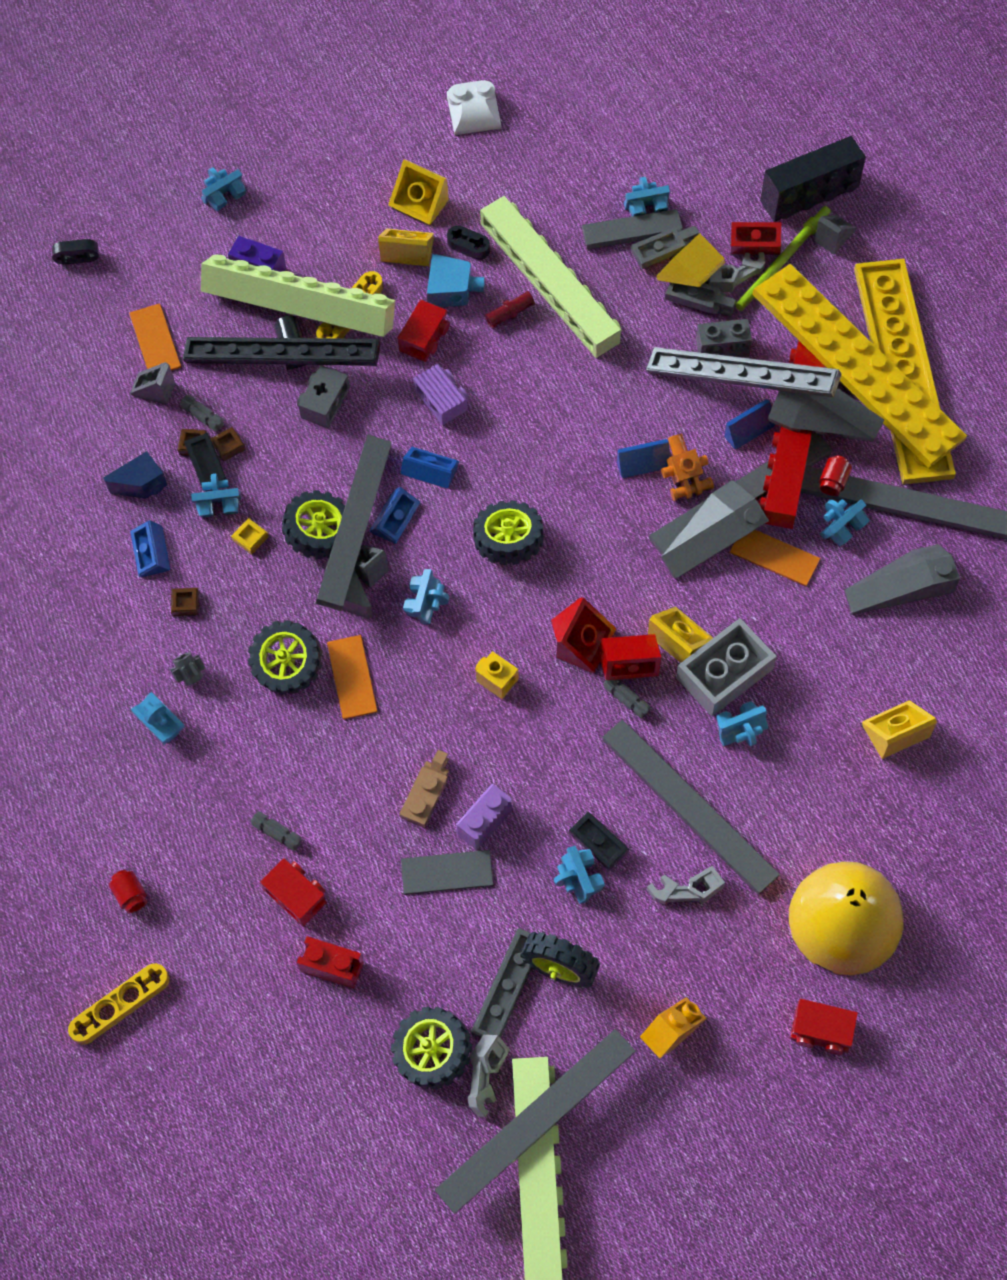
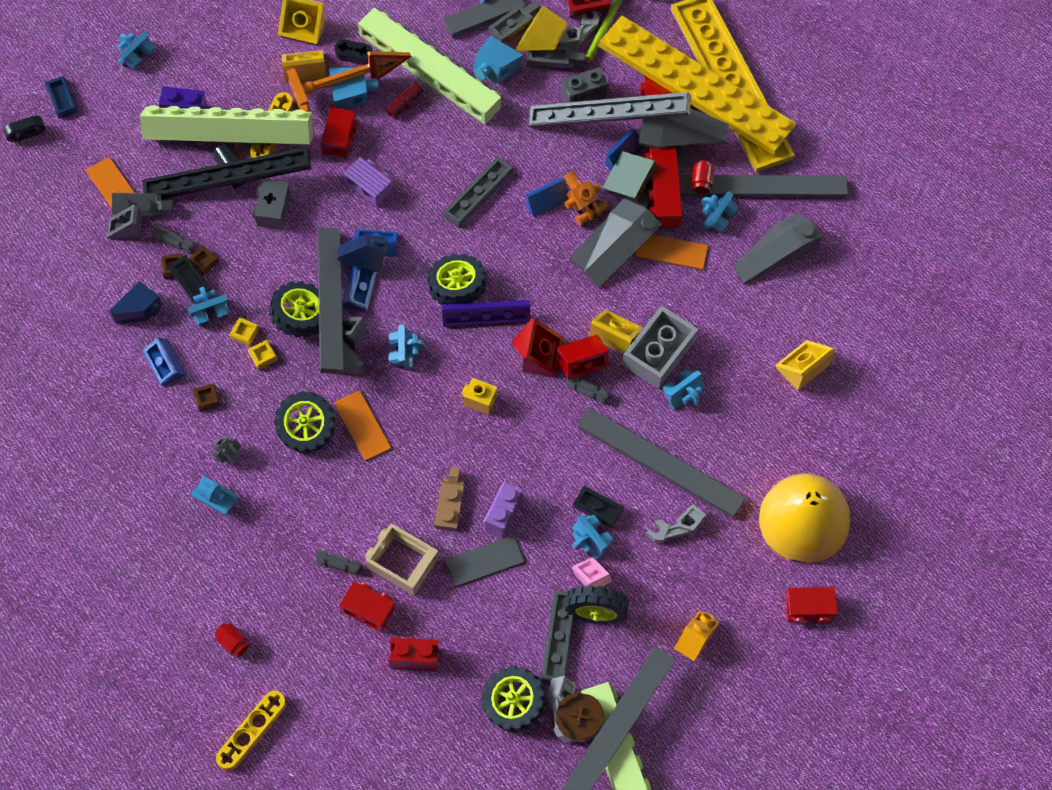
camera: 20 degrees left, 0 degrees up
(127, 225) = (61, 97): none -> dark blue tile
(182, 364) = (148, 203): none -> dark grey hinge
(262, 567) = (262, 354): none -> yellow tile
(365, 867) = (430, 557): none -> tan window
(409, 475) = (364, 252): none -> dark blue slope
(489, 262) = (378, 66): none -> orange piece
(500, 1091) = (579, 717): none -> reddish brown tile
(531, 578) = (486, 313): none -> dark purple tile
(565, 434) = (478, 192): none -> dark grey tile
(566, 920) = (591, 573): none -> bright pink plate
(628, 286) = (496, 61): none -> dark azure torso
(747, 455) = (630, 176): none -> tile

